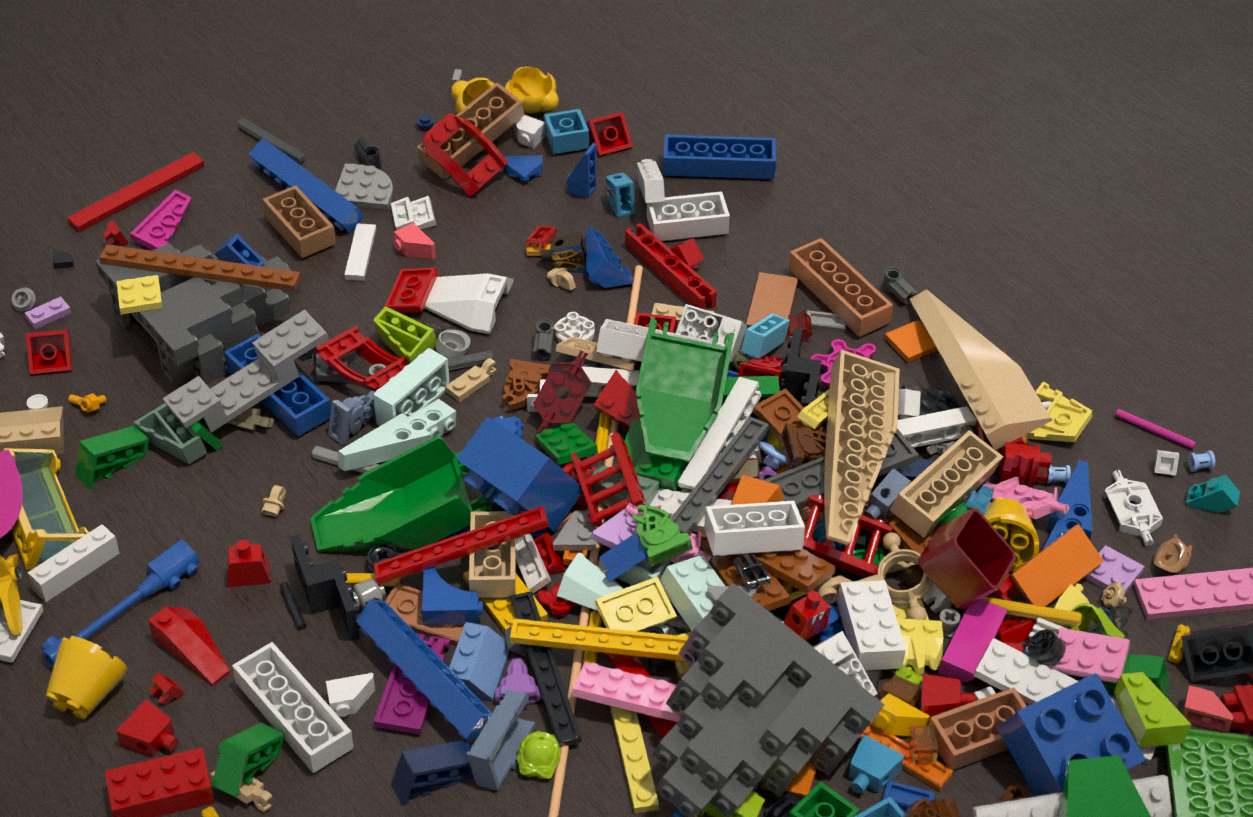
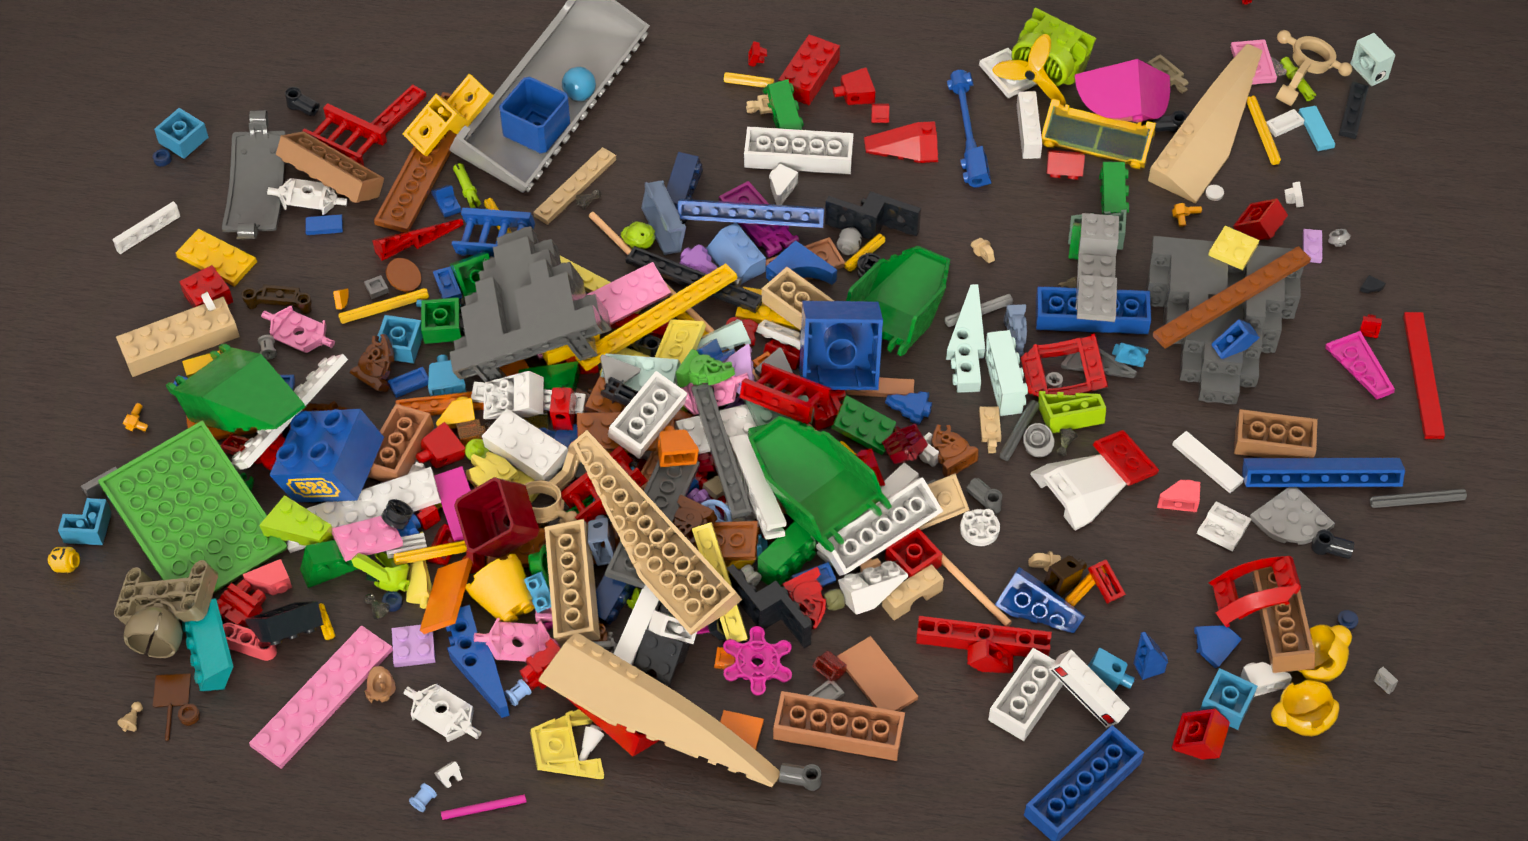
camera: 135 degrees right, 10 degrees up
(82, 676) = (924, 75): yellow cone -> none
(101, 506) = (1065, 163): none -> slope
(247, 565) = (938, 193): red torso -> none
(460, 545) = (817, 281): red tile -> none
(765, 336) = (834, 617): medium azure brick -> none
(923, 745) = (424, 402): clear orange brick -> none
(1113, 595) = (394, 618): tan piece -> none
(1214, 495) = (388, 767): teal slope -> none

